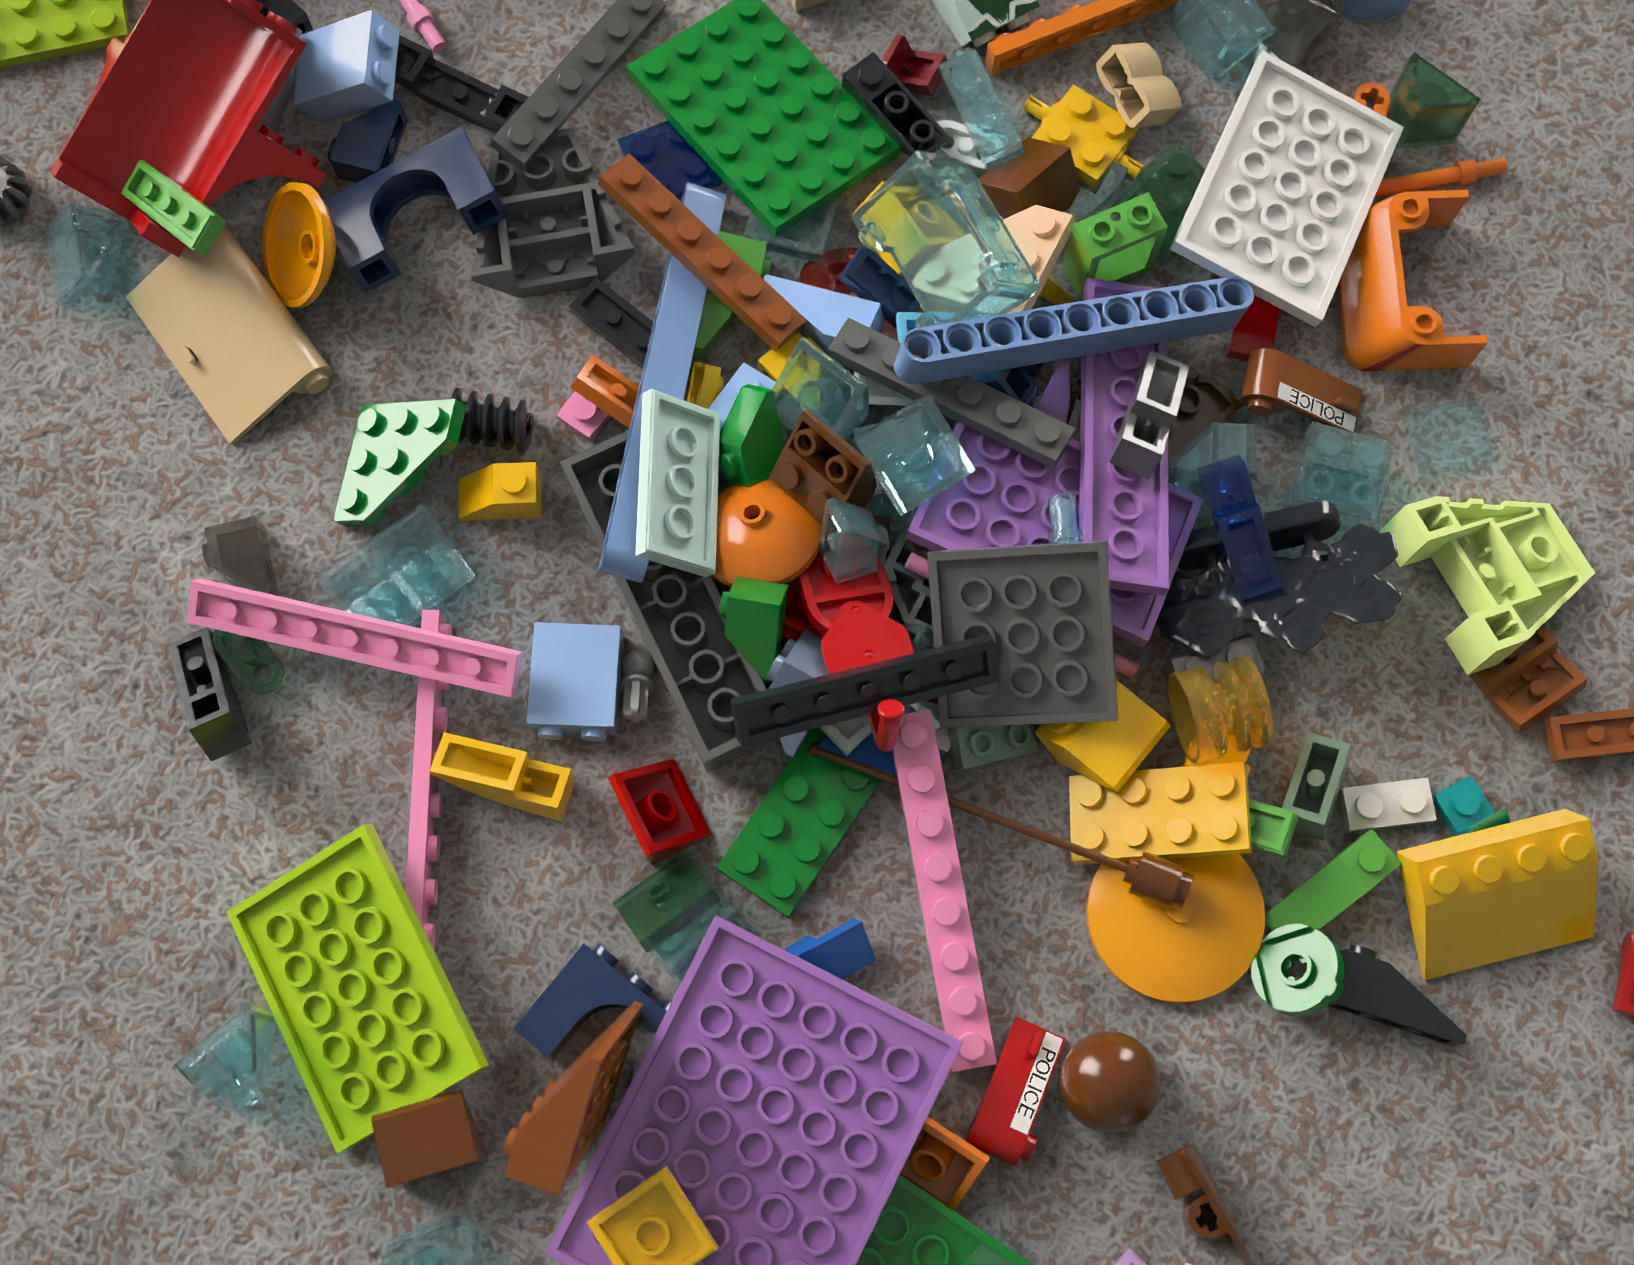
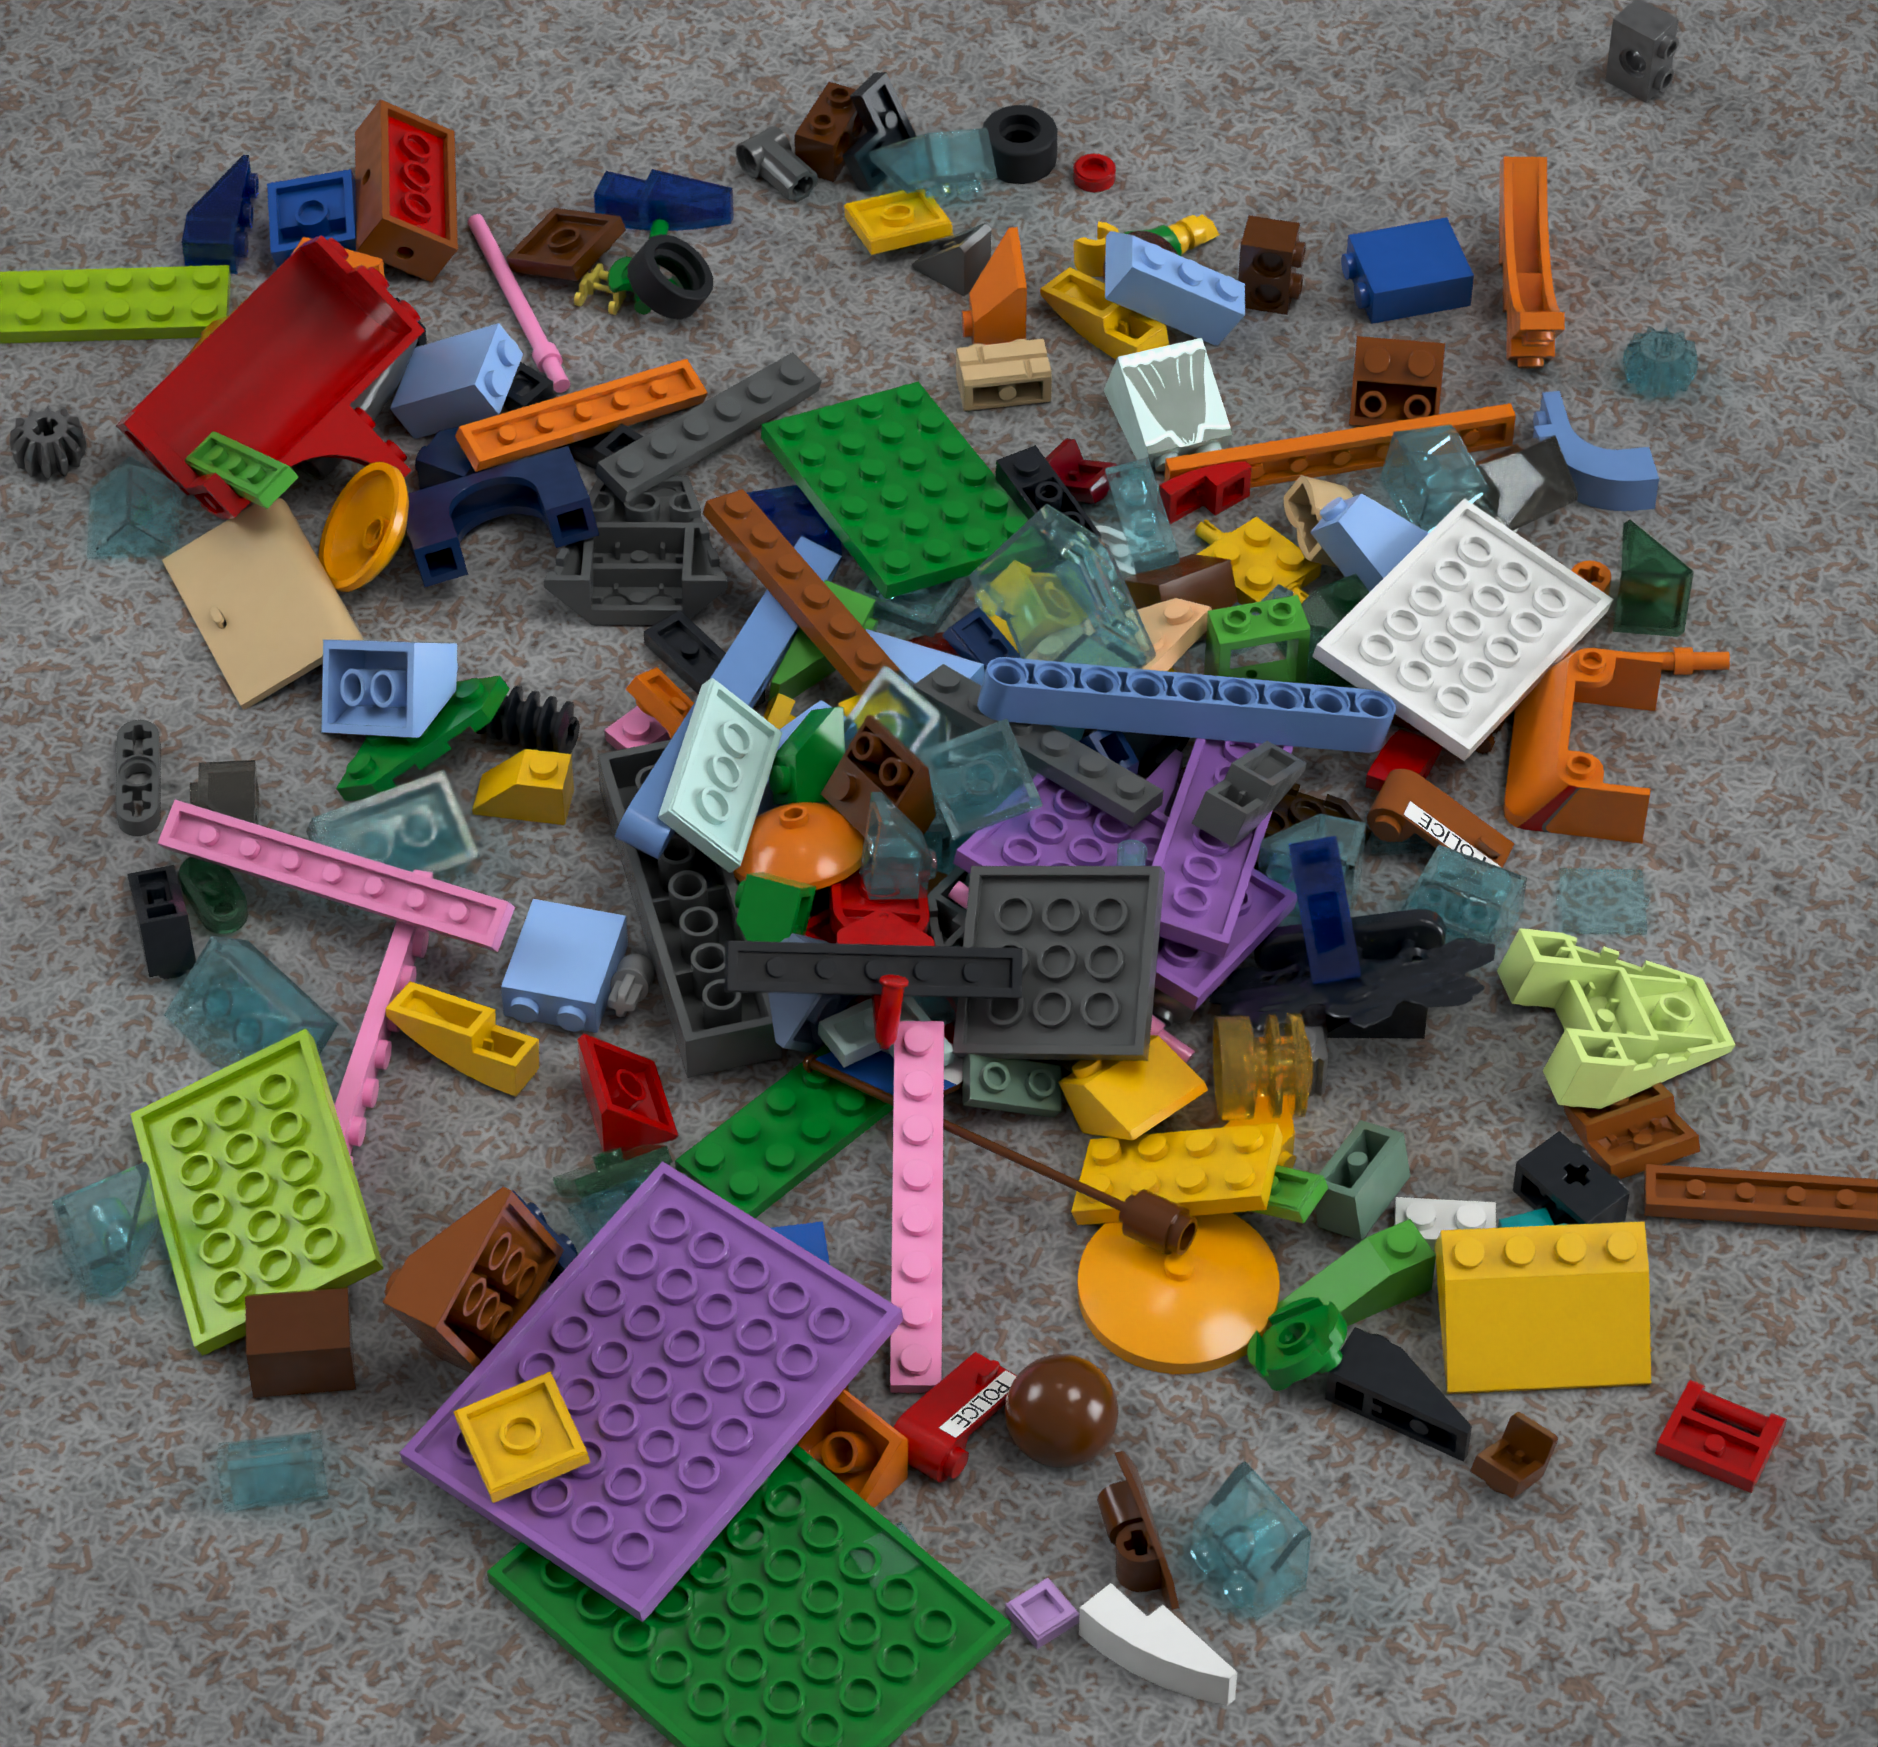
camera: 10 degrees right, 25 degrees down
(150, 569) = (128, 764): none -> dark grey beam
(308, 782) = (242, 1003): none -> clear light blue slope
(355, 417) = (385, 686): none -> light blue slope
(463, 84) = (580, 415): none -> orange plate
(1029, 61) = (1210, 486): none -> red slope
(1188, 110) = (1365, 537): none -> light blue slope
(1303, 1197) = (1252, 1544): none -> clear light blue slope
(1469, 749) = (1569, 1184): none -> black brick
(1502, 1048) = (1517, 1457): none -> reddish brown bracket

